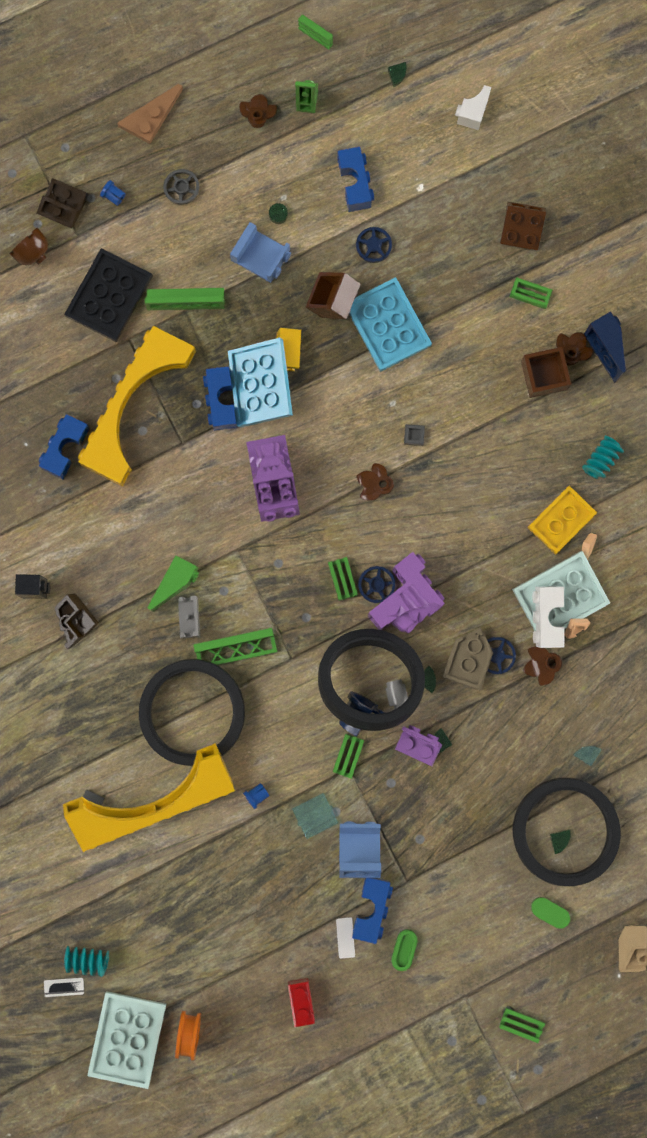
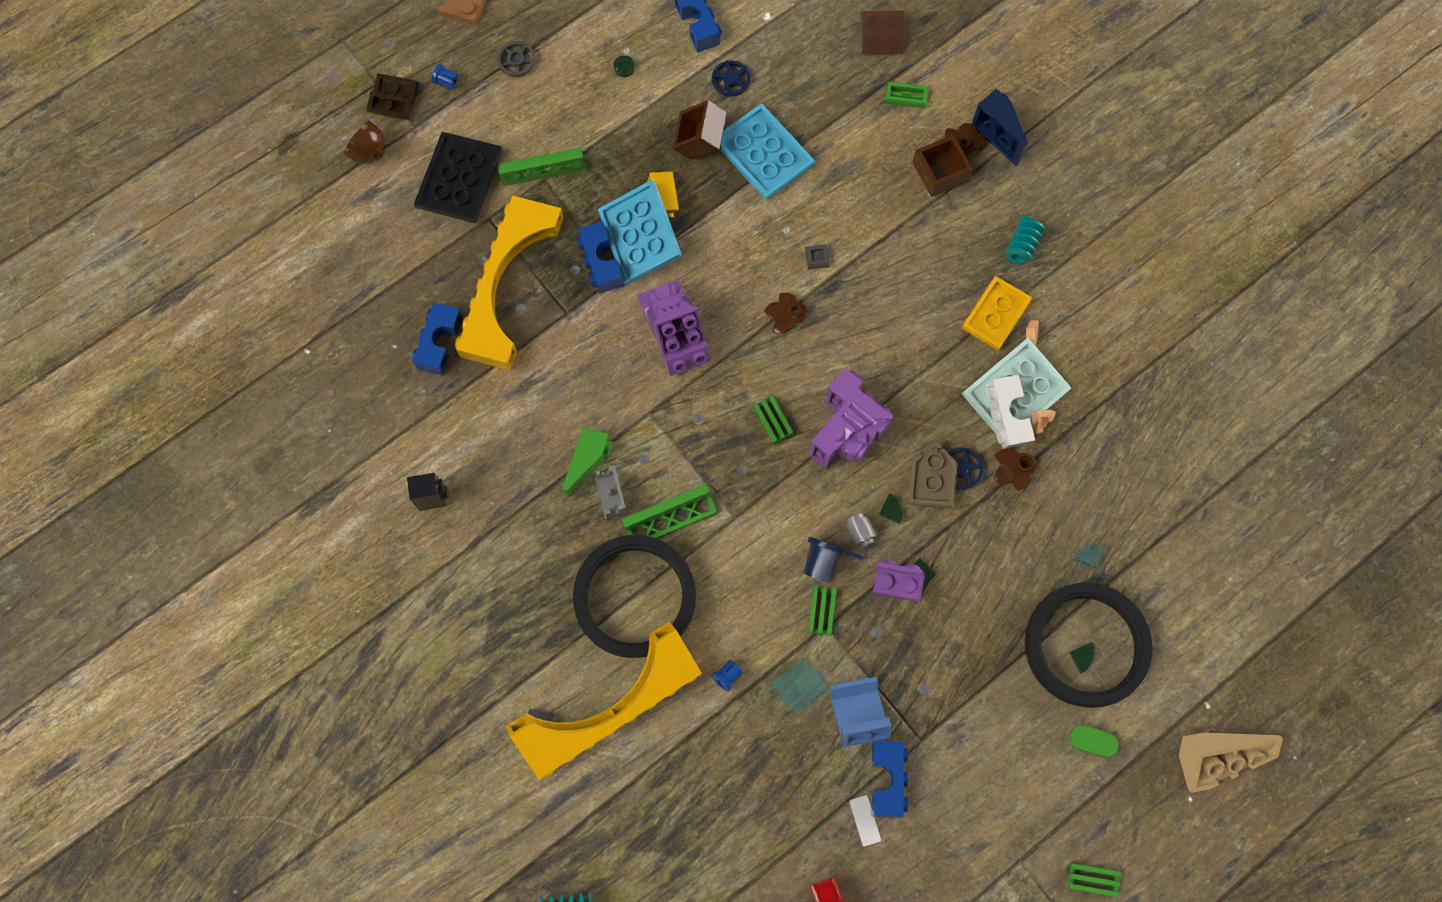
camera: 10 degrees left, 10 degrees down
(74, 619) = (481, 521): dark brown slope -> none
(260, 253) = (612, 108): medium blue panel -> none
(376, 584) = (811, 417): dark blue wheel -> none
(384, 640) = (824, 556): black tyre -> none
(404, 950) = (936, 820): bright green tile -> none

